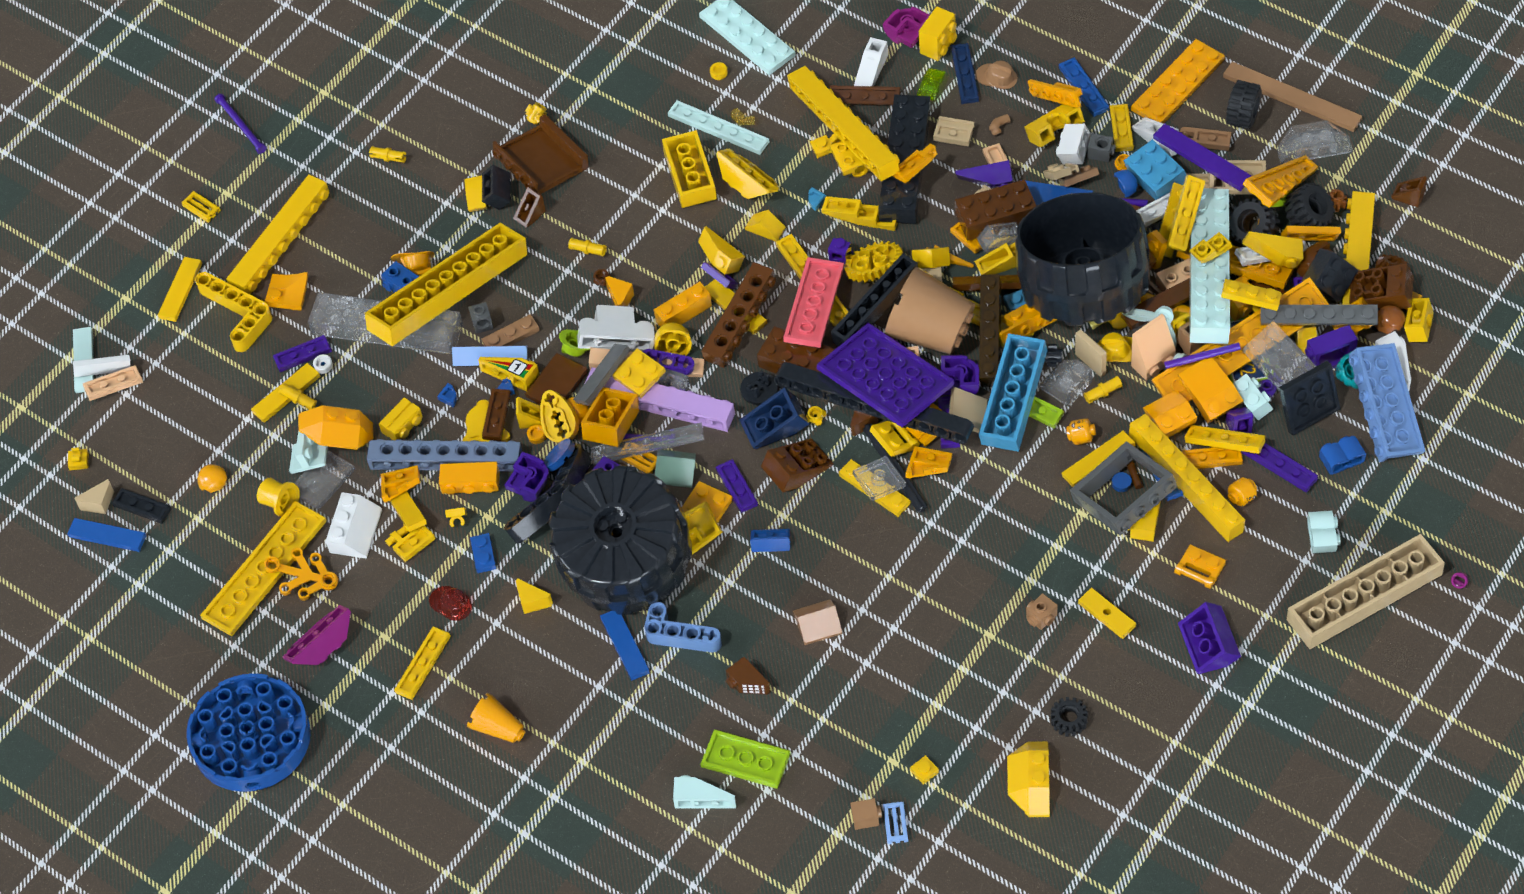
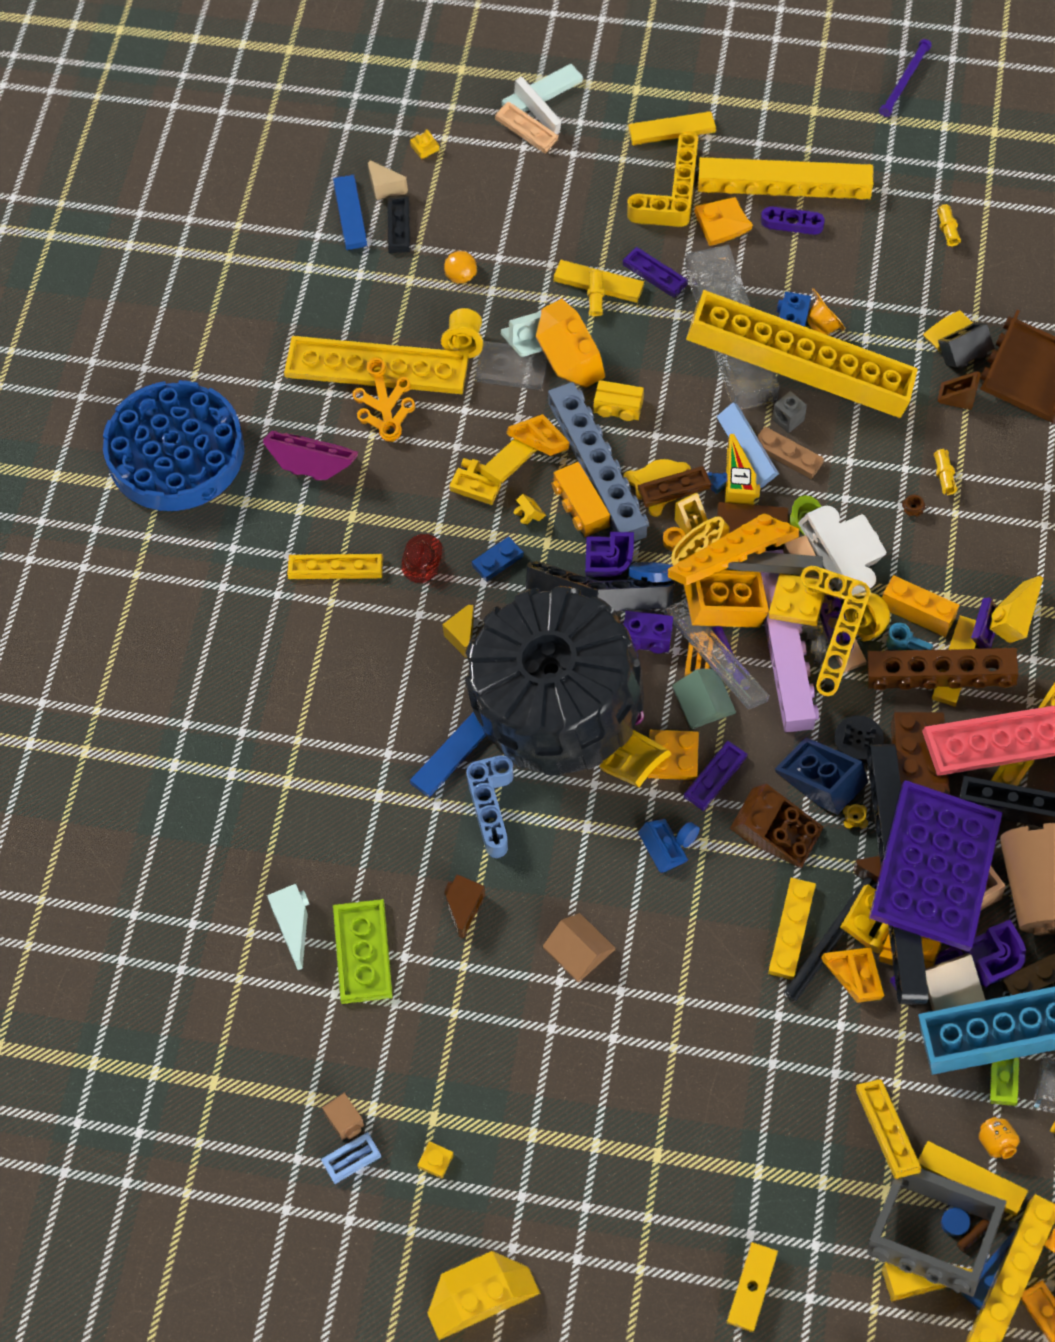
camera: 60 degrees right, 5 degrees up
(208, 215) = (780, 108): yellow tile -> none
(319, 239) = (798, 227): none -> dark purple beam
(323, 364) = (650, 296): white tile -> none
(353, 526) = (465, 420): white slope -> none
(448, 395) = (678, 431): blue tile -> none
(495, 720) = (289, 668): light orange cone -> none
(576, 390) = (733, 548): none -> light orange wing
(620, 291) = (901, 533): light orange slope -> none
(676, 354) = (842, 625): none -> yellow beam
(704, 327) = (908, 641): none -> dark azure axle
(772, 519) = (687, 834): none -> blue tile
(879, 478) = (800, 926): clear plate -> none
(1041, 612) = (713, 1212): medium nougat brick -> none
(1043, 489) = (888, 1129): none -> yellow tile
(1069, 706) = (576, 1319): black tyre -> none

